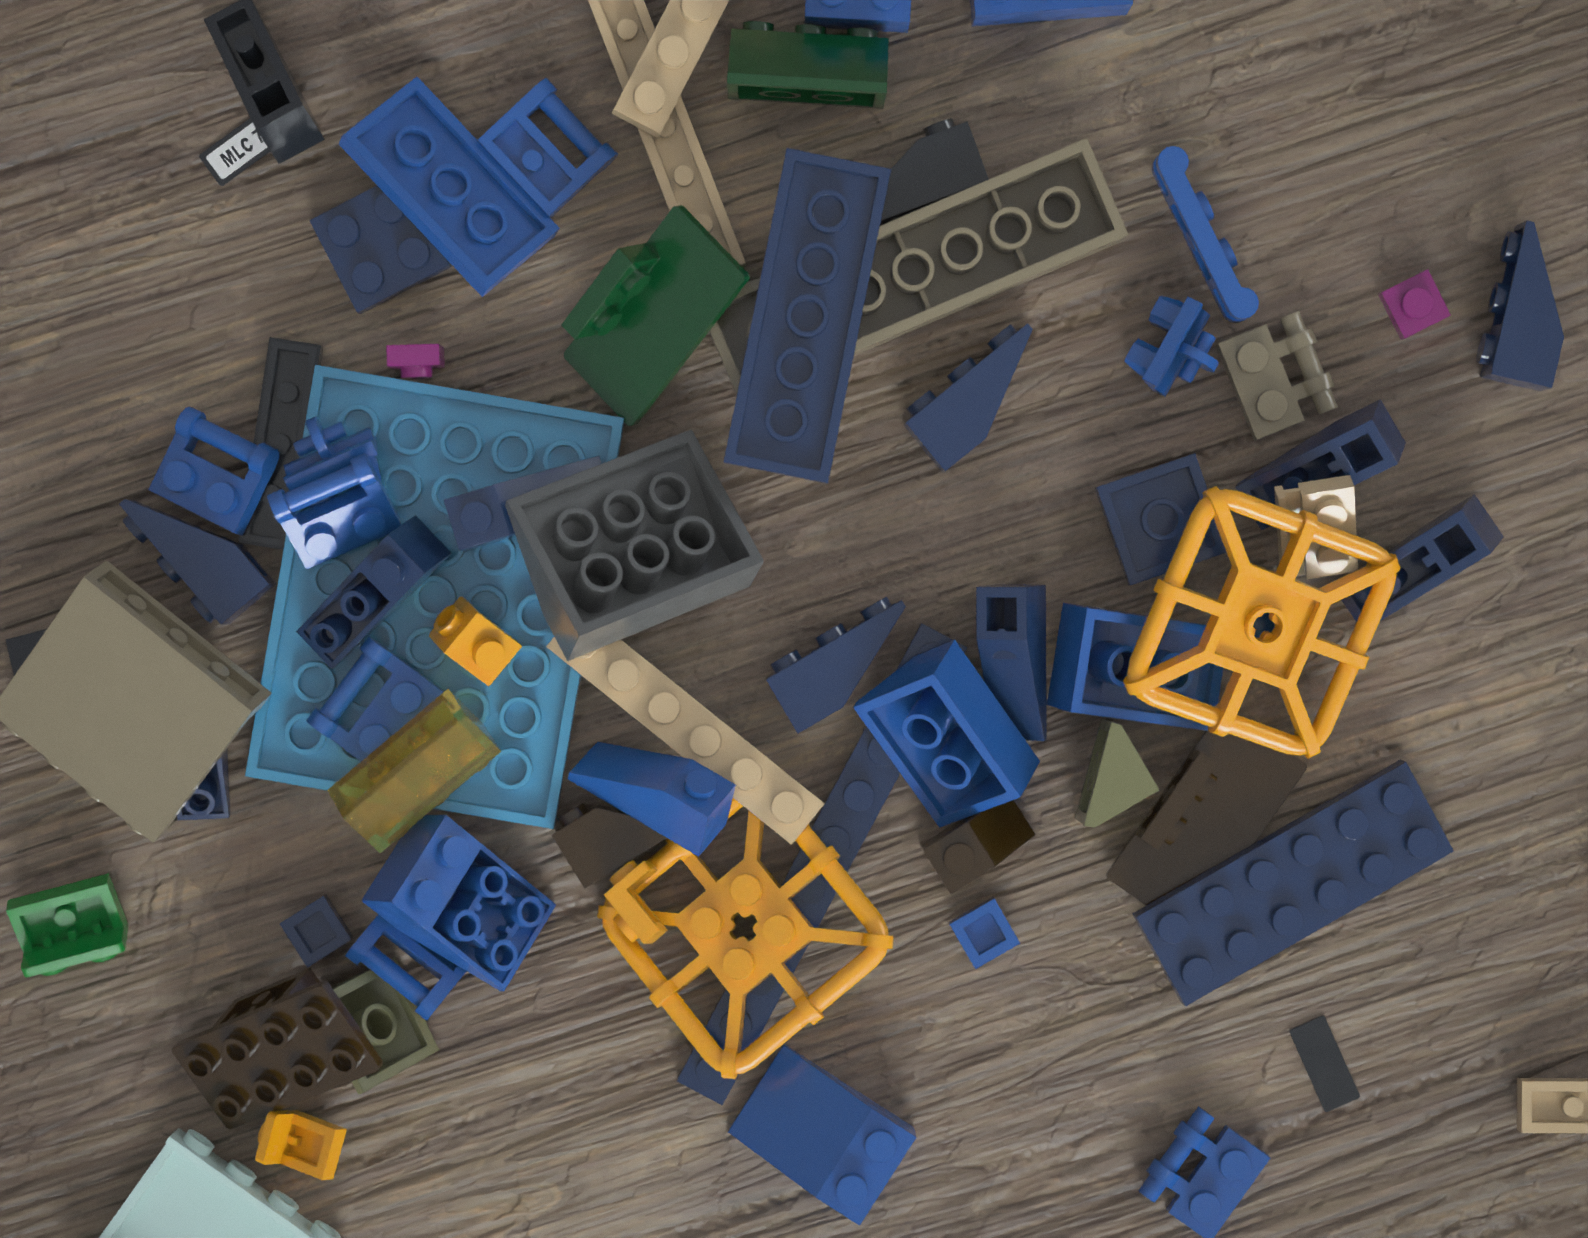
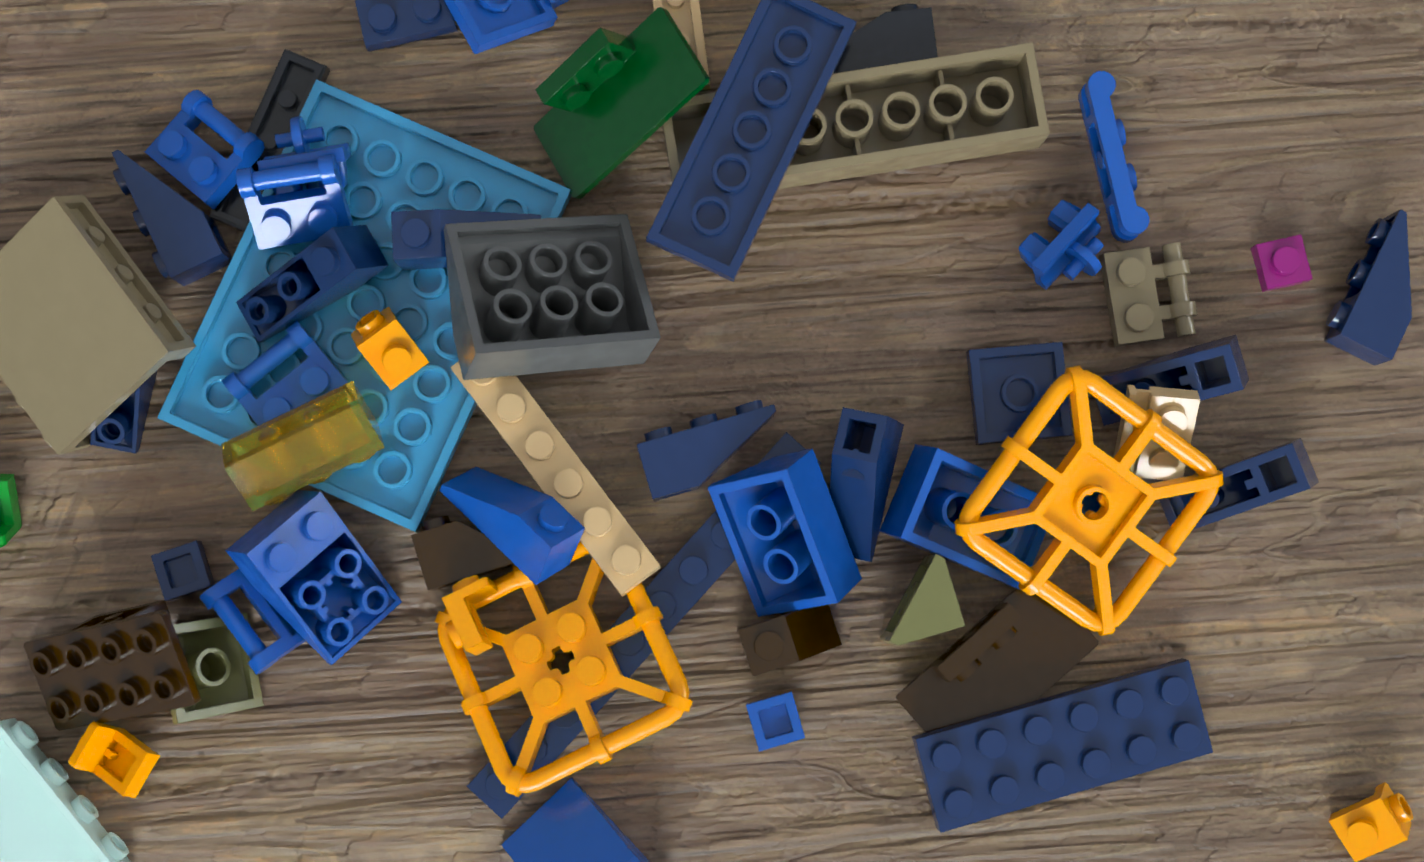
camera: 10 degrees right, 5 degrees down
(415, 359) = (404, 96): magenta plate -> none
(964, 413) = (863, 260): dark blue slope -> none

